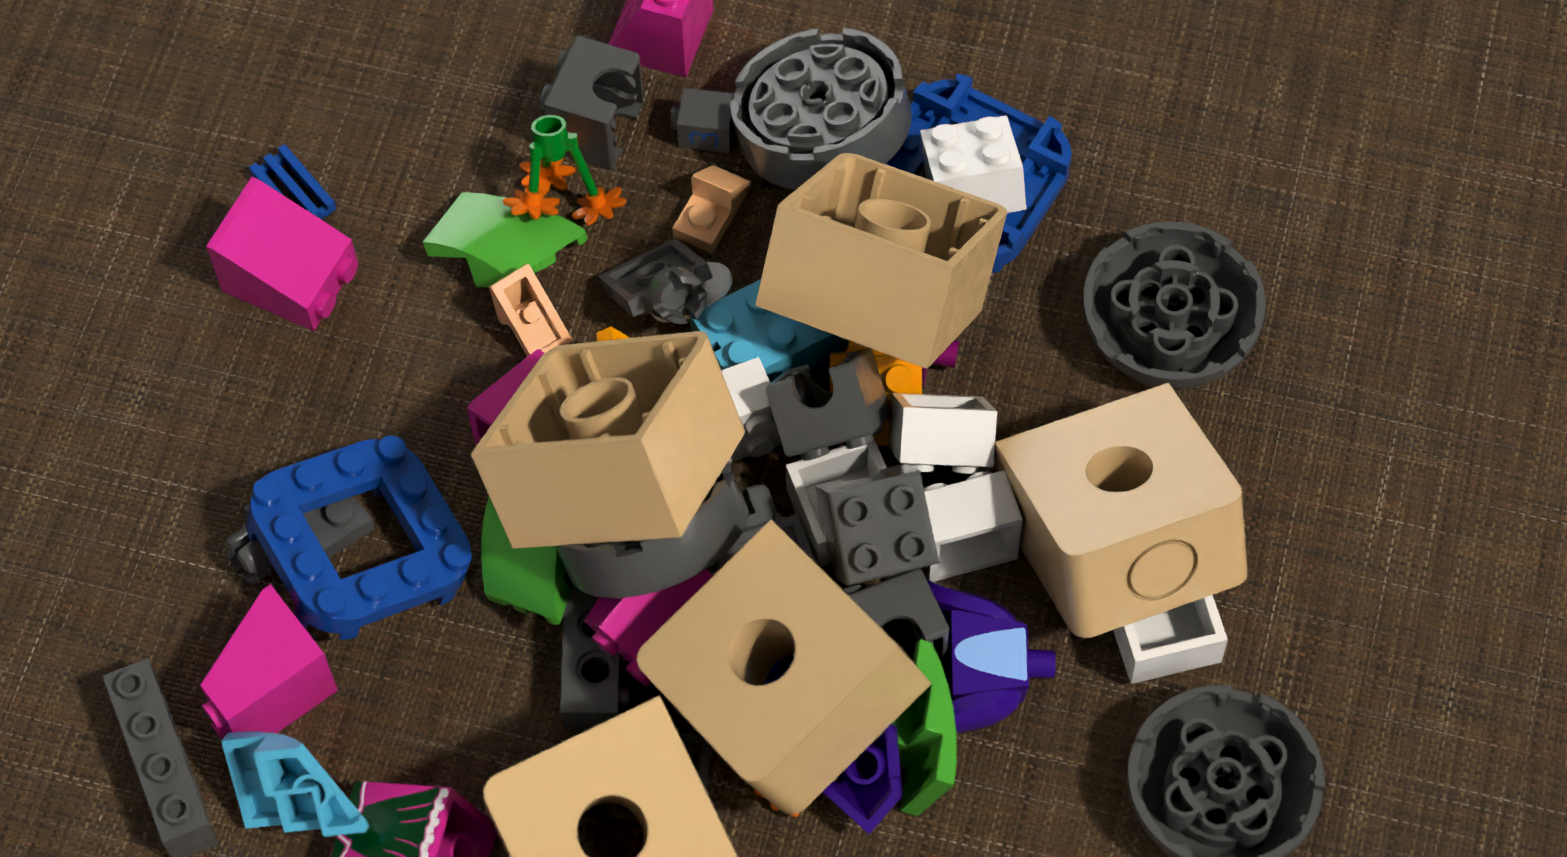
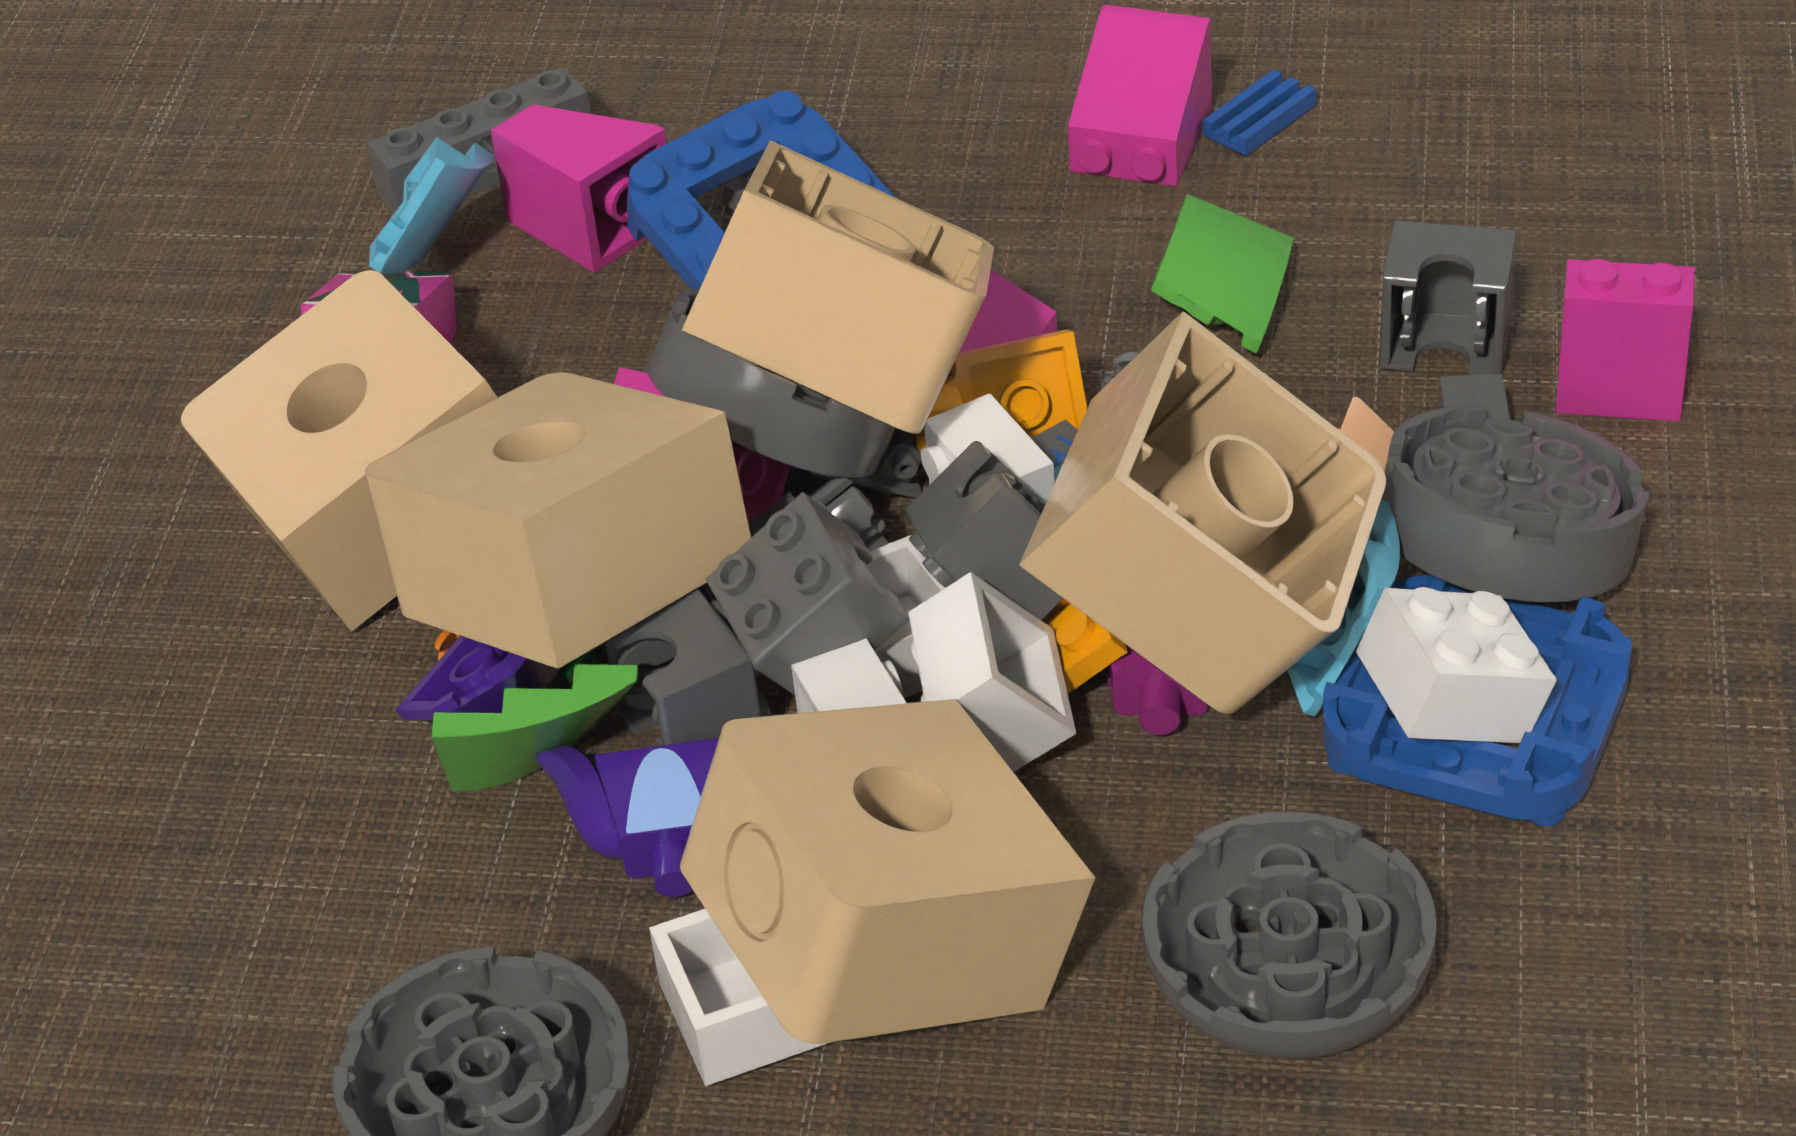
camera: 85 degrees right, 20 degrees down
(528, 311) = (1120, 296): light nougat slope -> none
(547, 155) = (1342, 237): plant -> none

